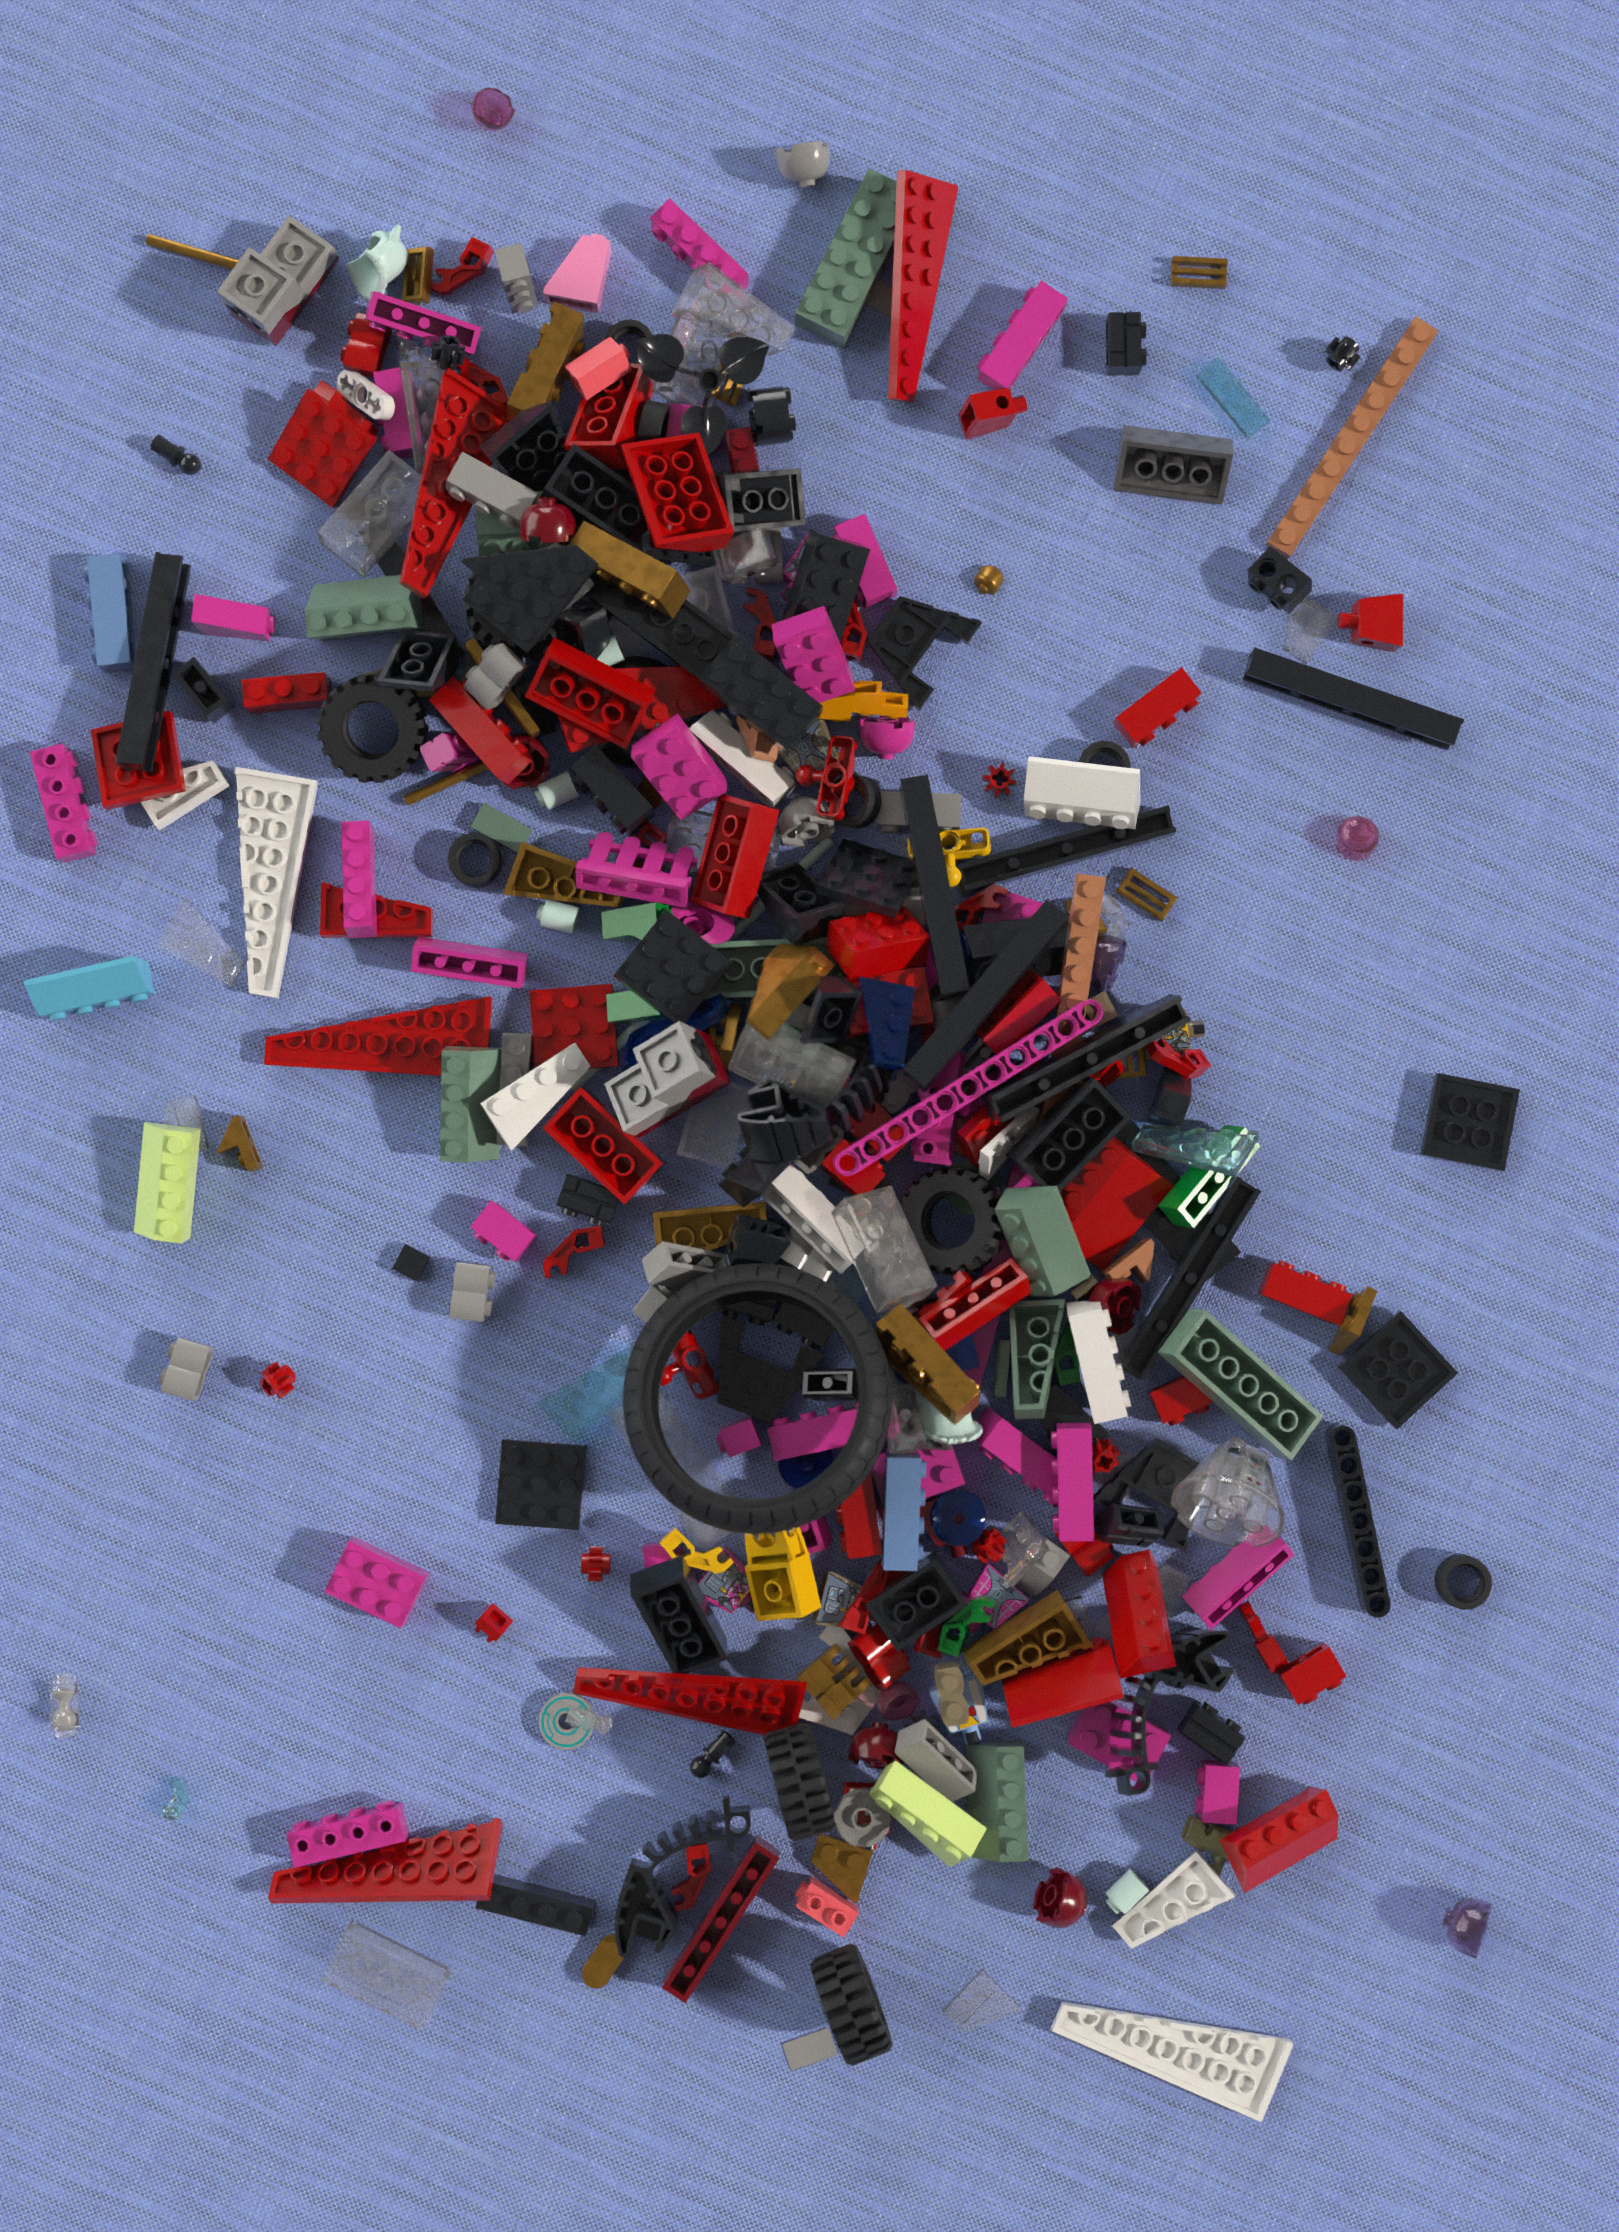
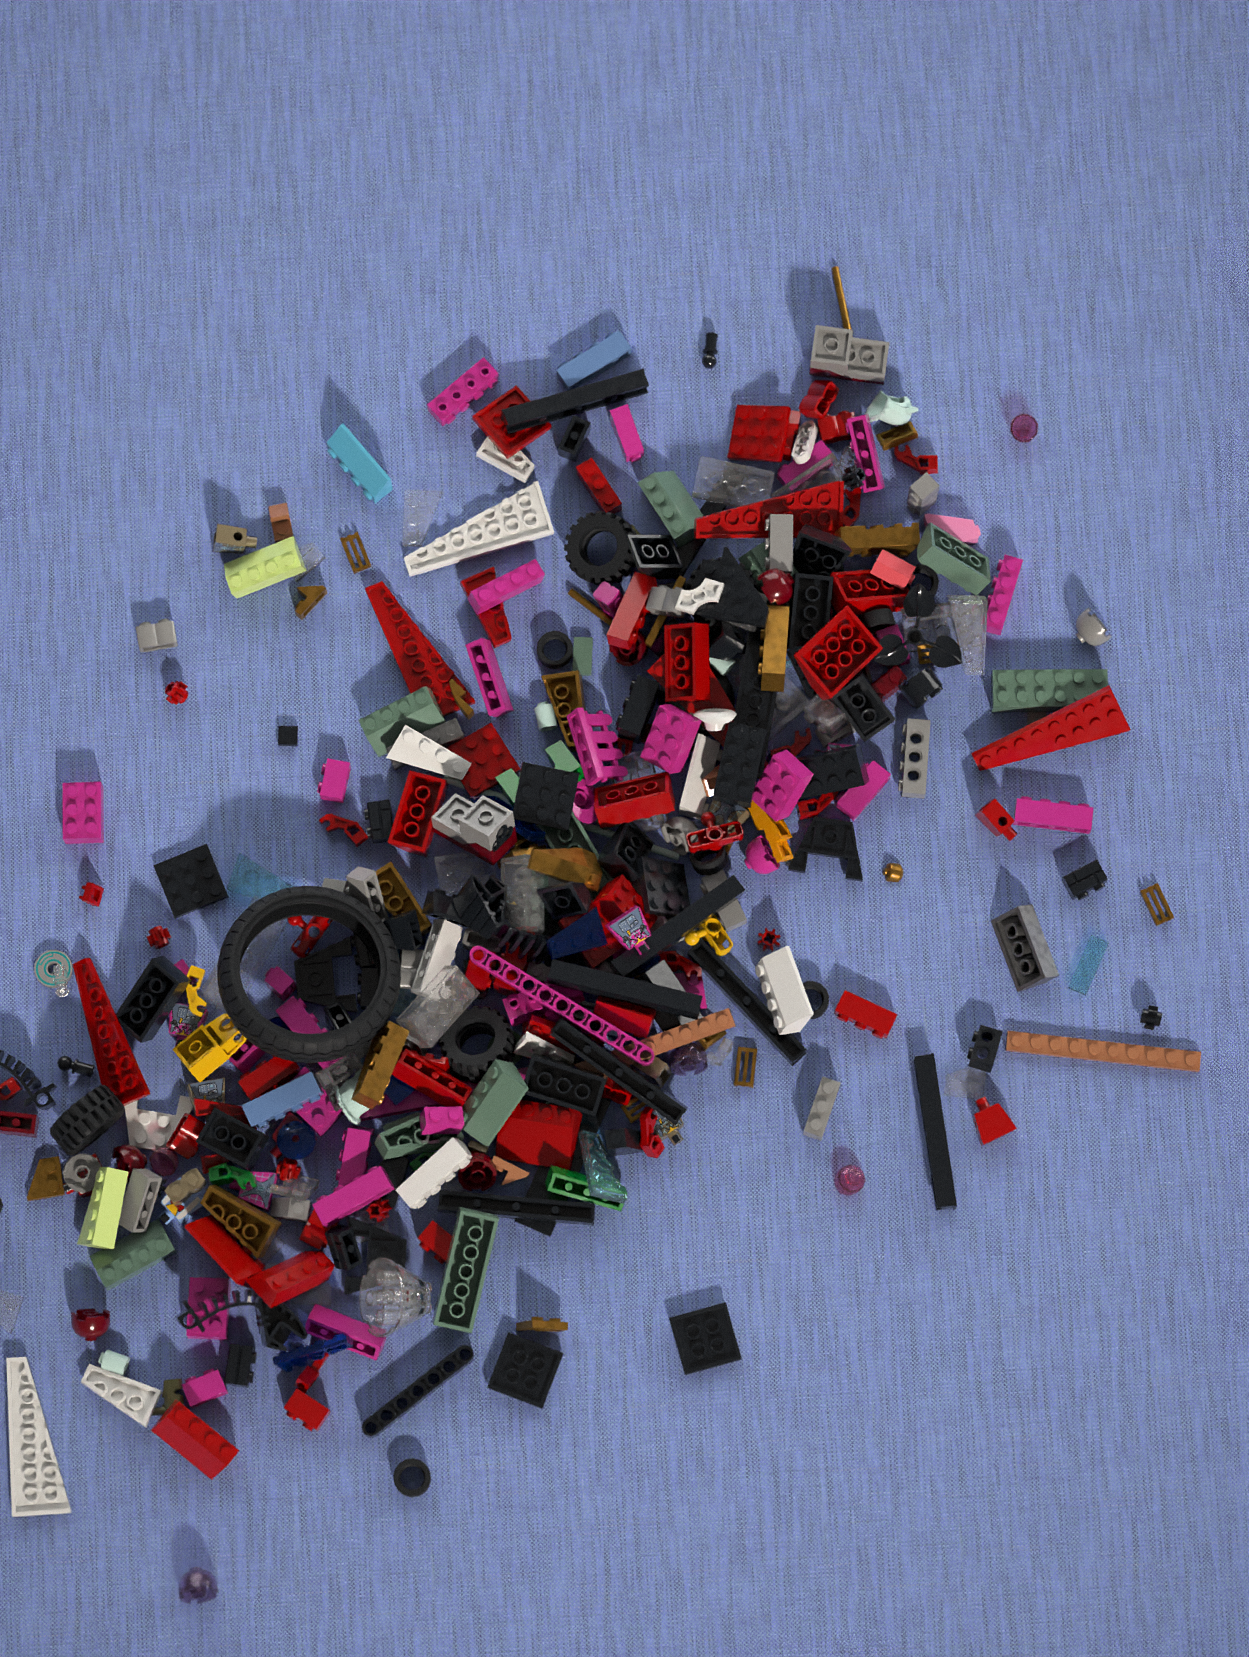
camera: 65 degrees right, 10 degrees down
(103, 1215) = (226, 537): none -> dark tan torso
(115, 1129) = (280, 521): none -> nougat slope
(184, 1050) = (350, 538): none -> pearl gold tile
(316, 348) = (818, 399): none -> red brick
(471, 1291) = (288, 780): light grey brick -> none
(473, 1014) = (458, 695): none -> pearl gold slope
(512, 638) = (707, 592): none -> white tile
(556, 791) = (621, 676): light aqua brick -> none
(624, 284) = (954, 559): none -> sand green slope
(683, 694) = (715, 718): none -> white hat
(826, 1906) = (16, 1181): coral brick -> none
(833, 1695) = (149, 1119): pearl gold legs -> none
(851, 459) = (921, 729): none -> light grey brick
(915, 946) = (631, 930): none -> torso
(1034, 1318) = (441, 1120): none -> dark pink brick
(1247, 1645) = (299, 1357): none -> clear blue wing
(1251, 825) = (821, 1108): none -> light grey brick
(1305, 1292) = (544, 1287): red brick -> none

